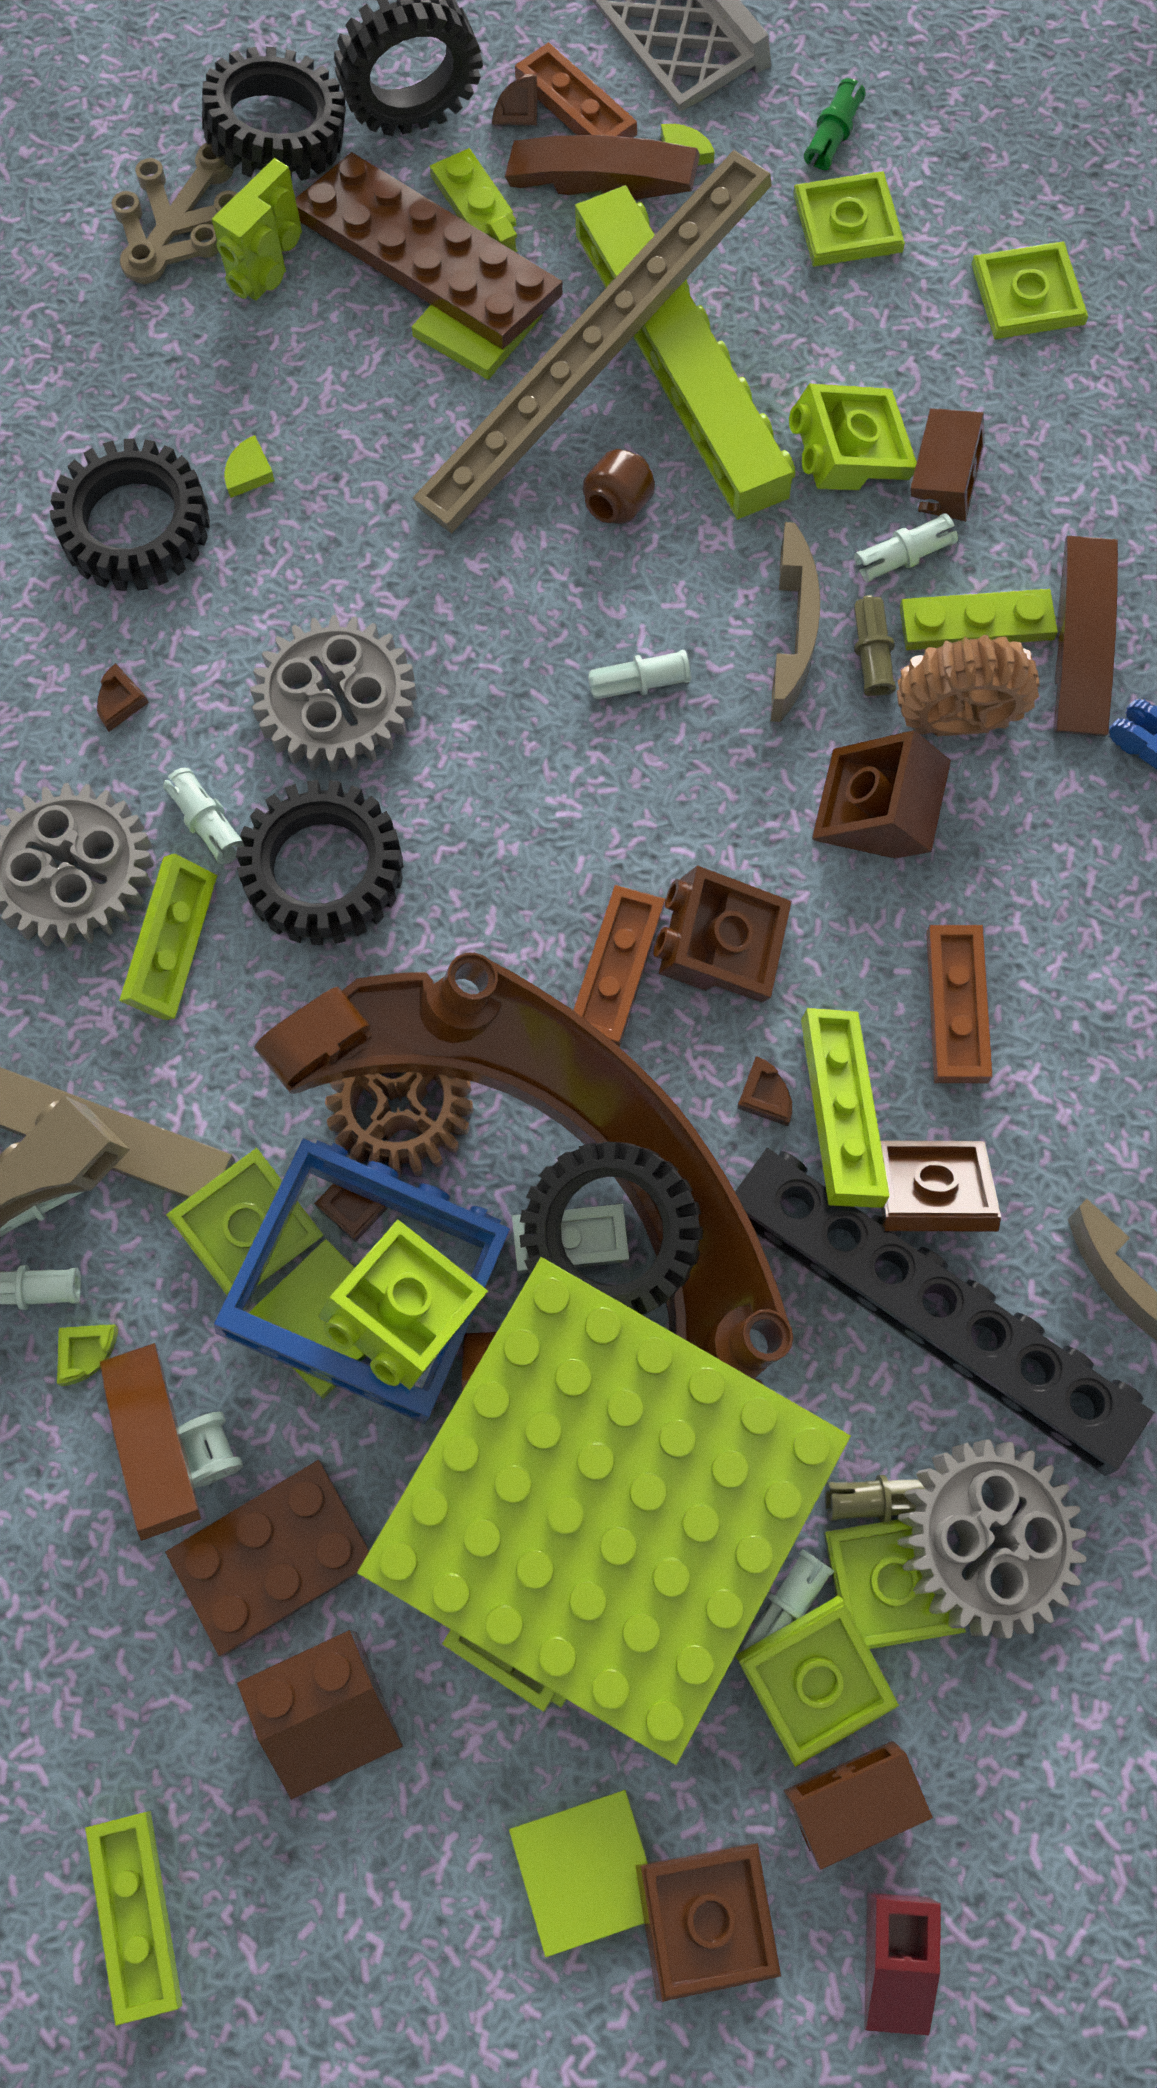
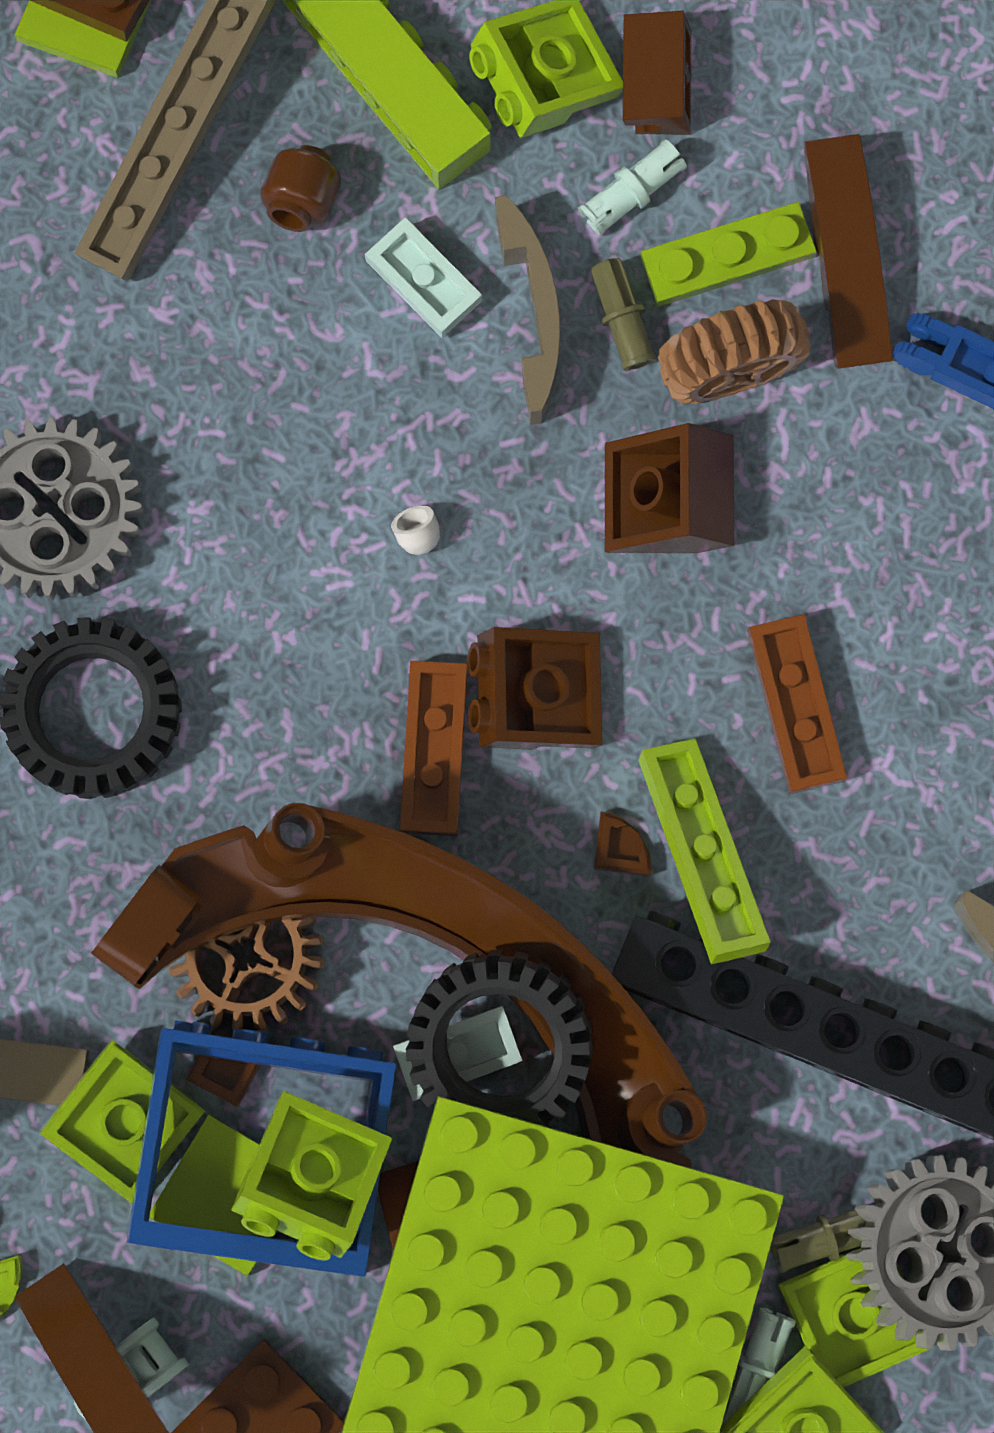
camera: 15 degrees left, 10 degrees up
(639, 675) = (377, 408): light aqua axle -> none
(648, 781) = (416, 530): none -> white hinge
(706, 580) = (423, 277): none -> light aqua plate
(939, 1187) = (816, 910): tile -> none

